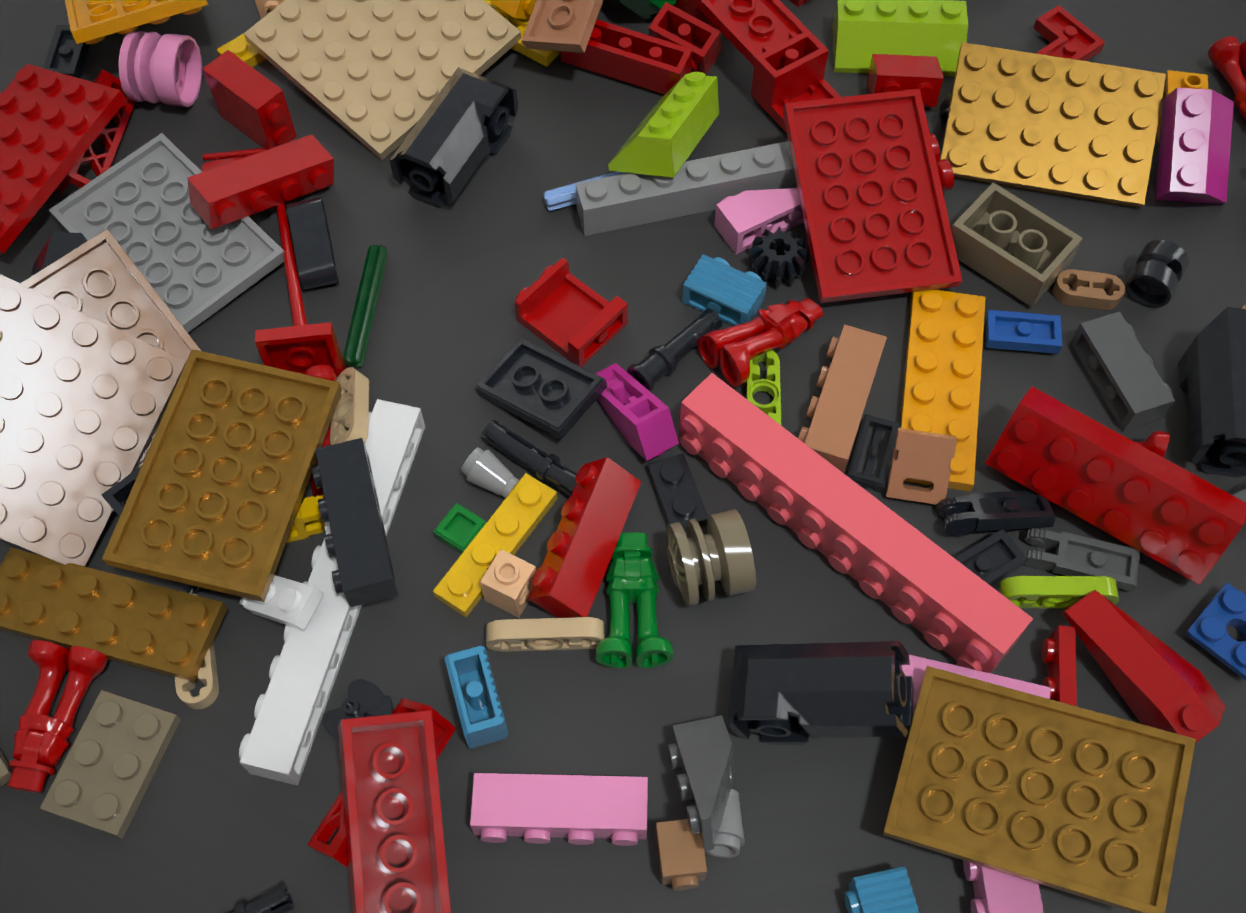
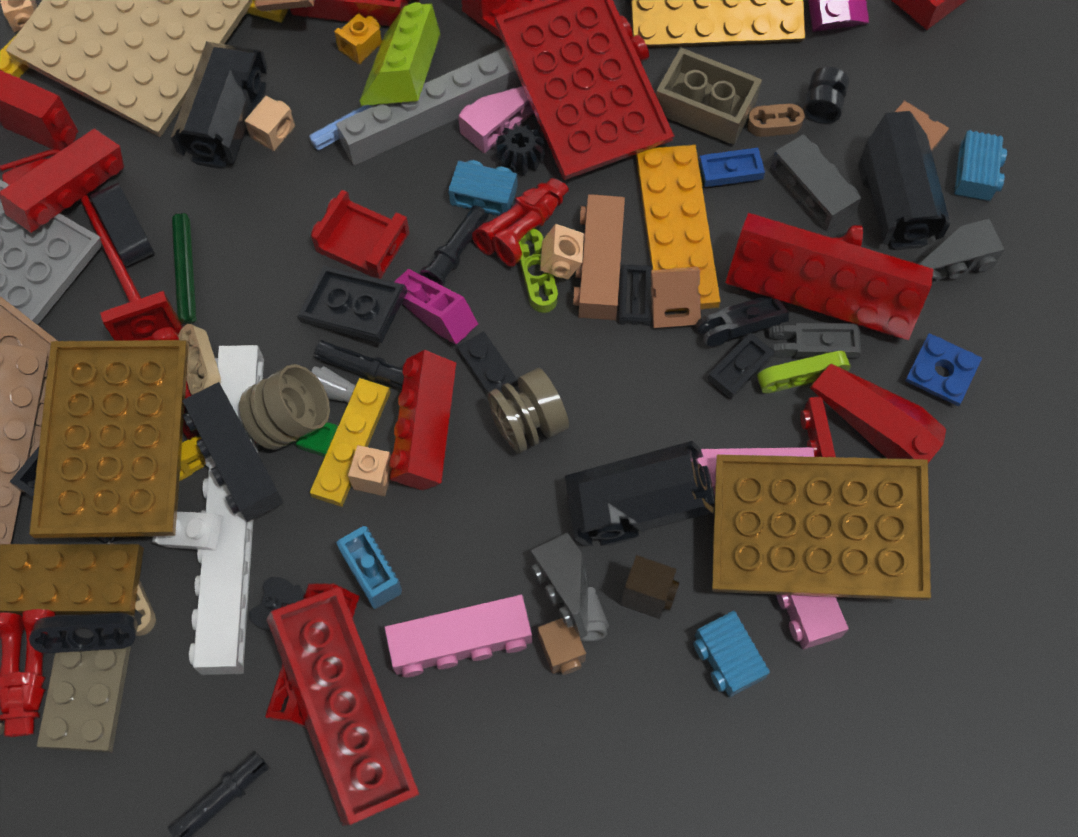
camera: 15 degrees left, 5 degrees up
(99, 691) = (73, 643): none -> black beam
(429, 485) = (284, 407): none -> dark tan wheel
(504, 169) = (270, 122): none -> light nougat brick
(544, 634) = (410, 504): tan beam -> none
(627, 99) = (358, 38): none -> light orange brick
(633, 581) = (468, 445): green piece -> none
(797, 383) = (562, 251): none -> light nougat brick
(806, 809) = (650, 587): none -> dark brown brick
(850, 527) = (627, 358): coral brick -> none

